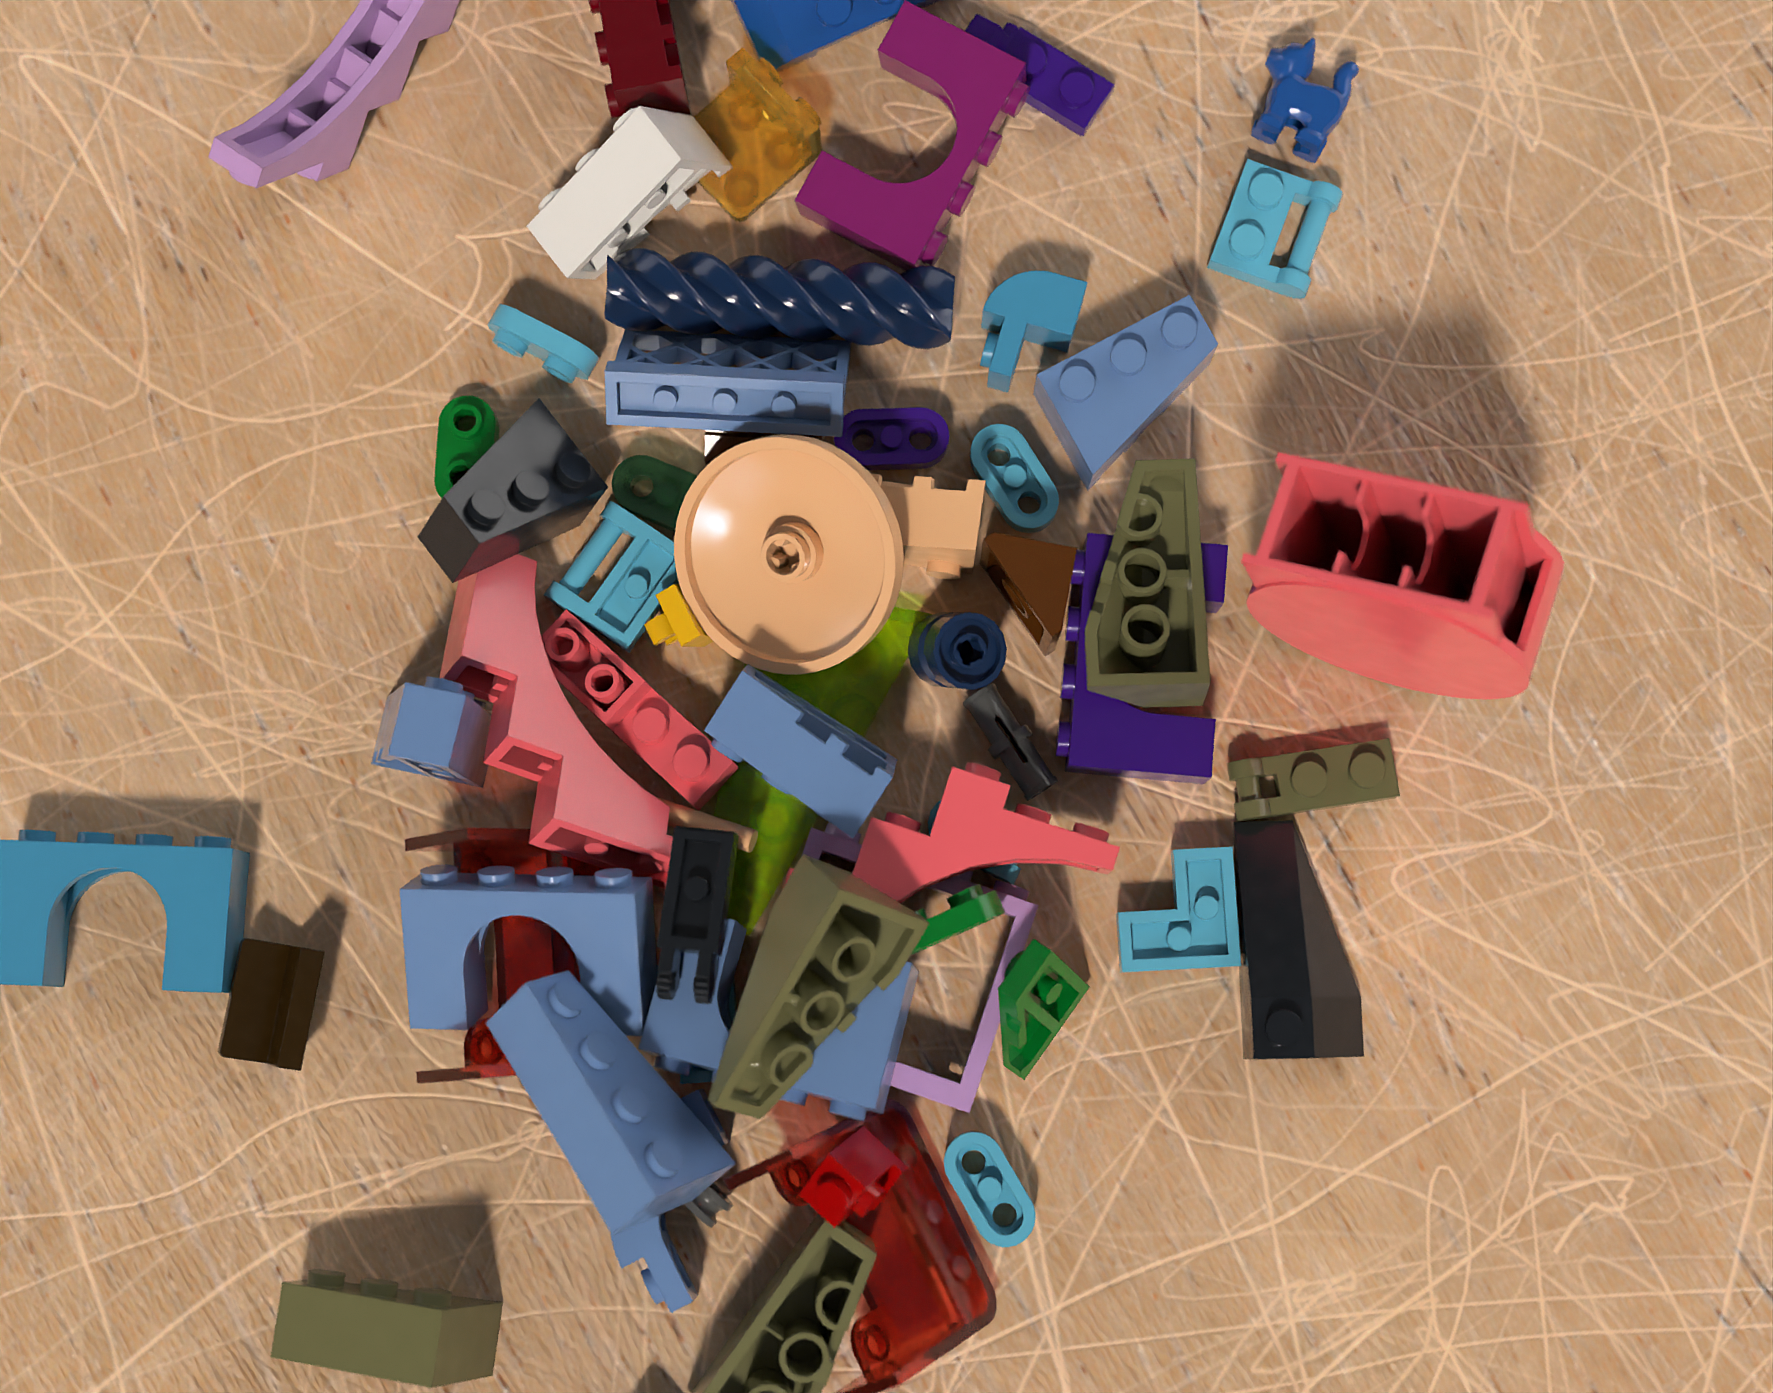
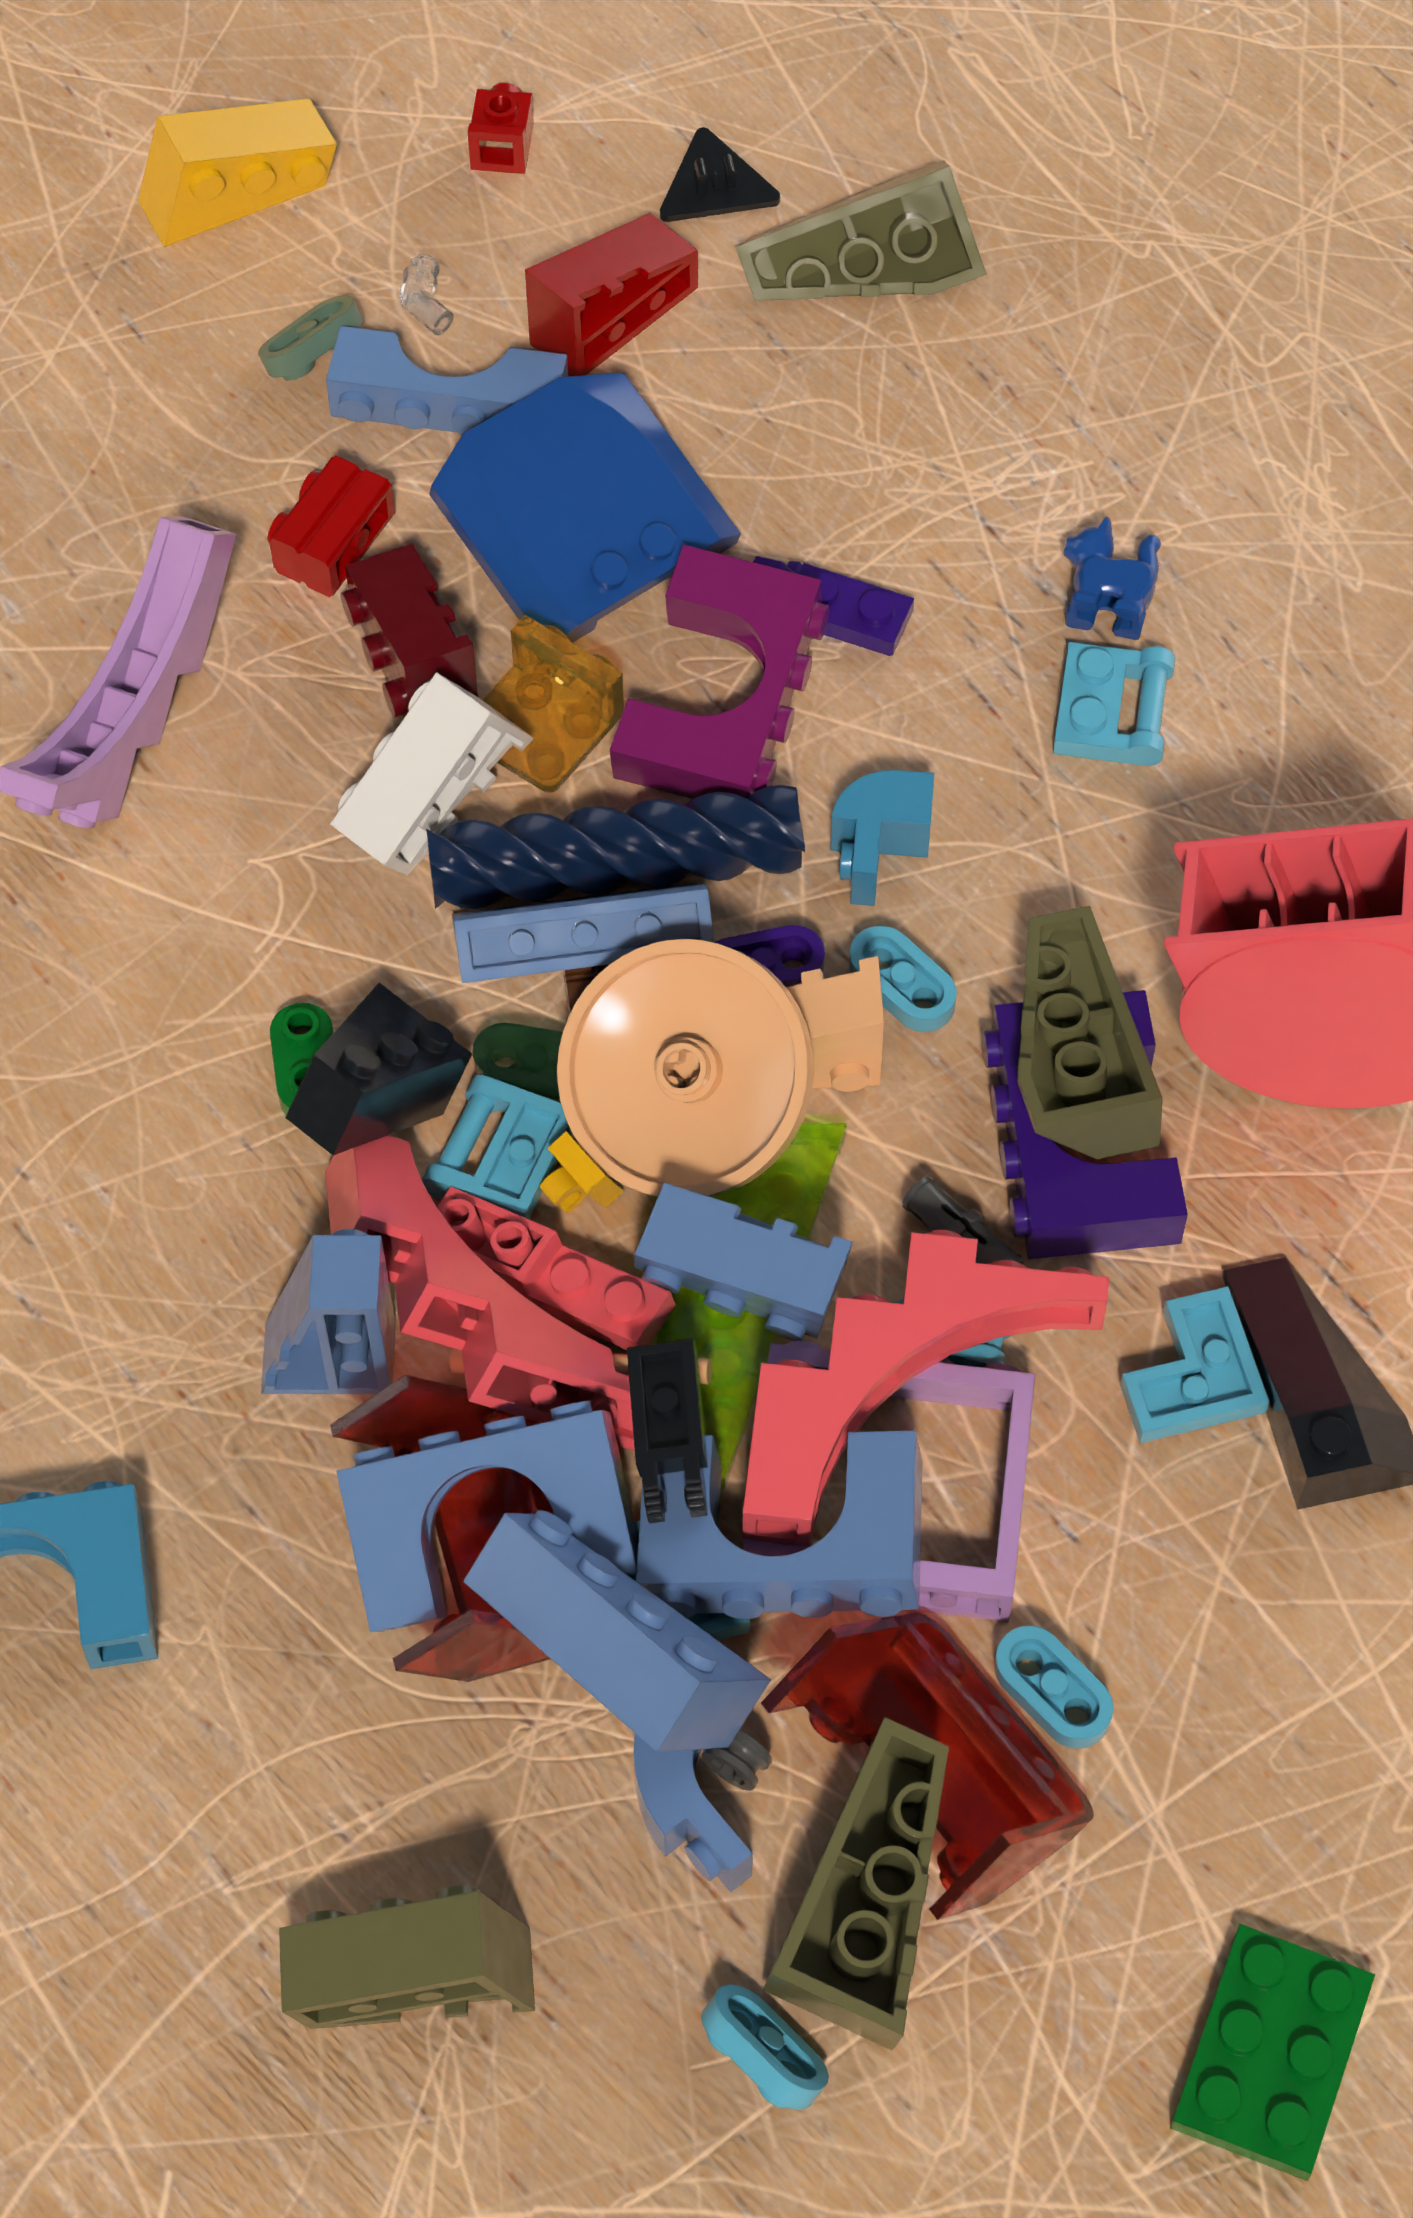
camera: 15 degrees left, 20 degrees down
(271, 1003) = (205, 1648): dark brown panel -> none
(562, 354) = (367, 936): medium azure plate -> none
(815, 964) = (815, 1440): olive wedge -> none
(853, 1178) = (903, 1676): red brick -> none
(944, 655) = (884, 1143): dark blue wheel -> none
(967, 911) = (957, 1388): green plate -> none
(1033, 581) = (945, 1061): reddish brown slope -> none
(1035, 1004) = (1058, 1475): green wing -> none
(1122, 384) = (993, 867): medium blue wedge -> none
(1315, 779) = (1297, 1213): olive plate -> none

